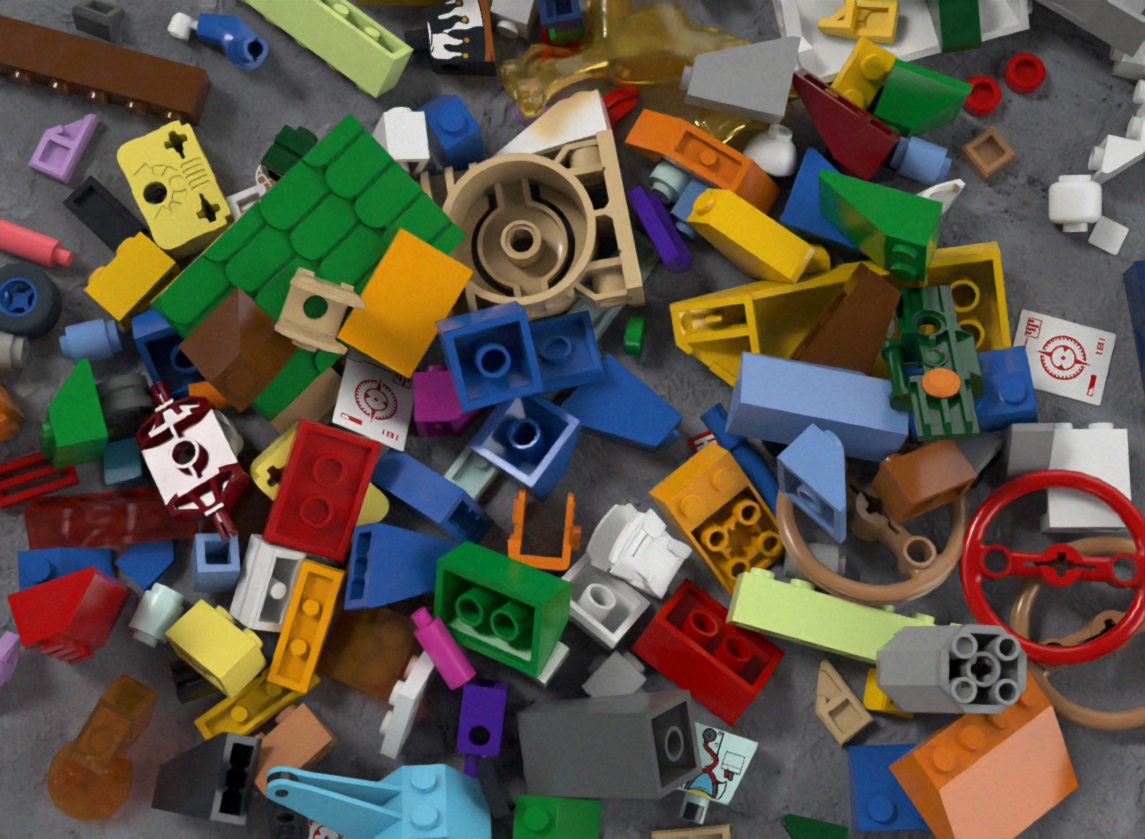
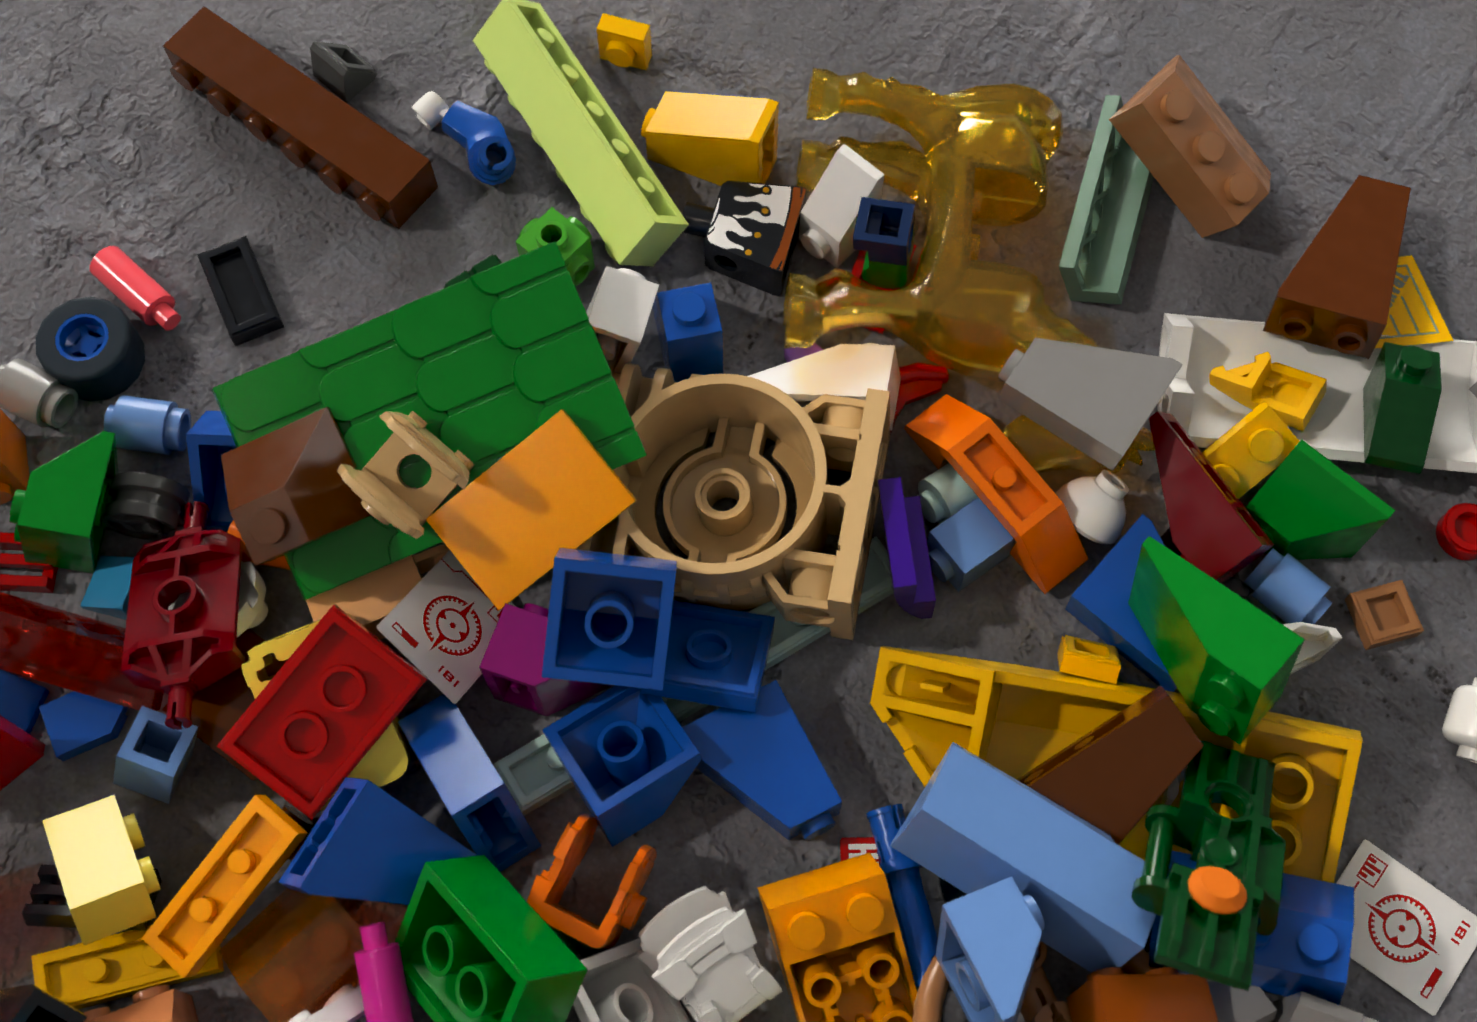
camera: 25 degrees right, 10 degrees down
(62, 148) = (231, 196): lavender tile -> none
(131, 279) = (218, 359): yellow piece -> none
(156, 614) = (53, 791): light aqua brick -> none
(187, 187) = (324, 278): light yellow axle -> none
(266, 584) = (199, 810): white brick -> none
(320, 116) = (570, 237): none -> bright green brick
(635, 335) = (823, 673): green tile -> none
(749, 237) = (1022, 599): yellow slope -> none
(983, 96) = (1399, 540): red tile -> none

